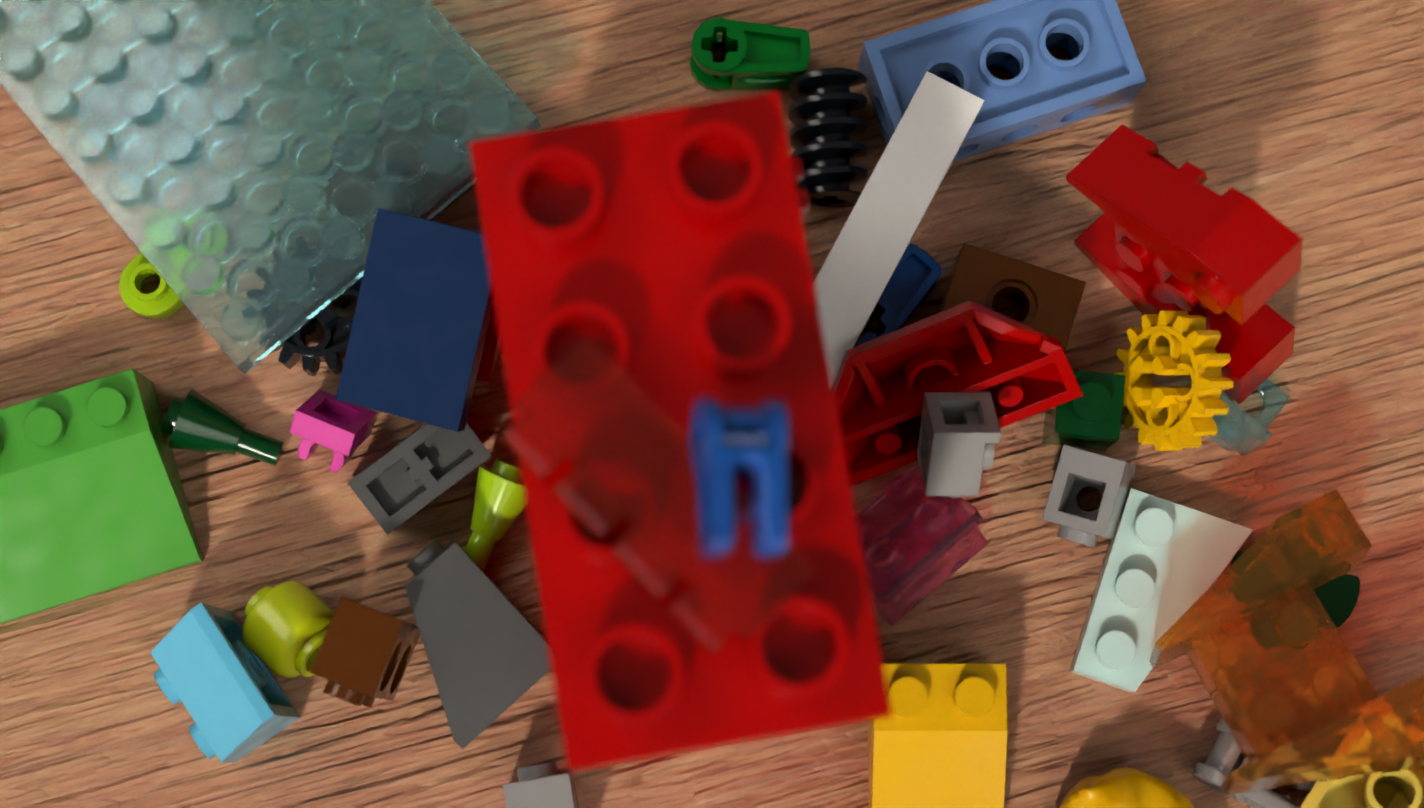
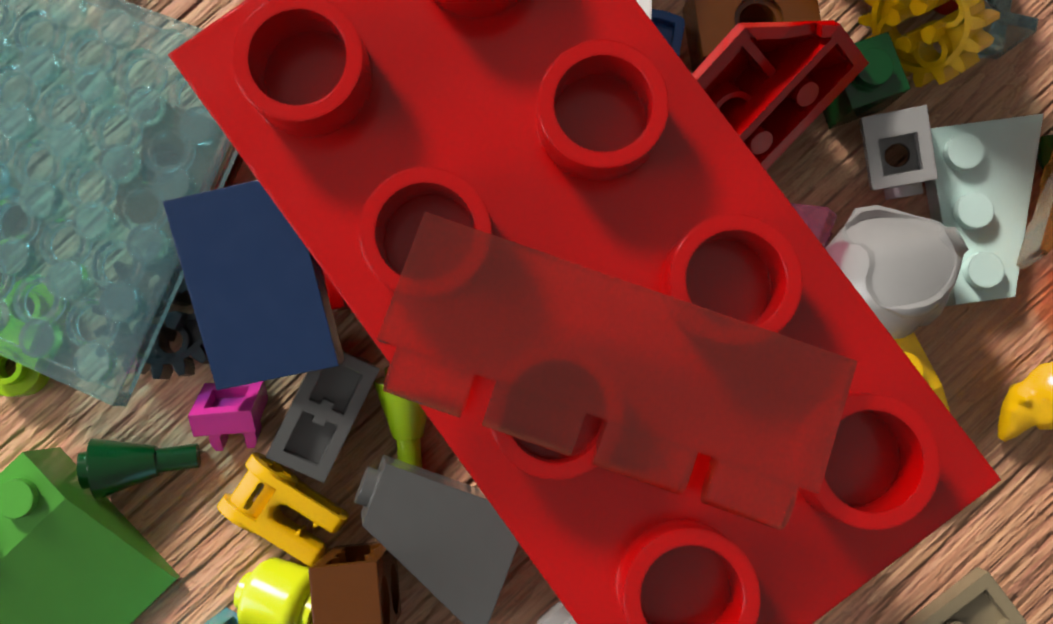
camera: 25 degrees left, 5 degrees up
(315, 537) = (266, 518): none -> yellow piece
(746, 445) = (684, 262): blue piece -> none
(956, 442) = (788, 149): light grey brick -> none
(1012, 601) = (899, 264): none -> light grey helmet

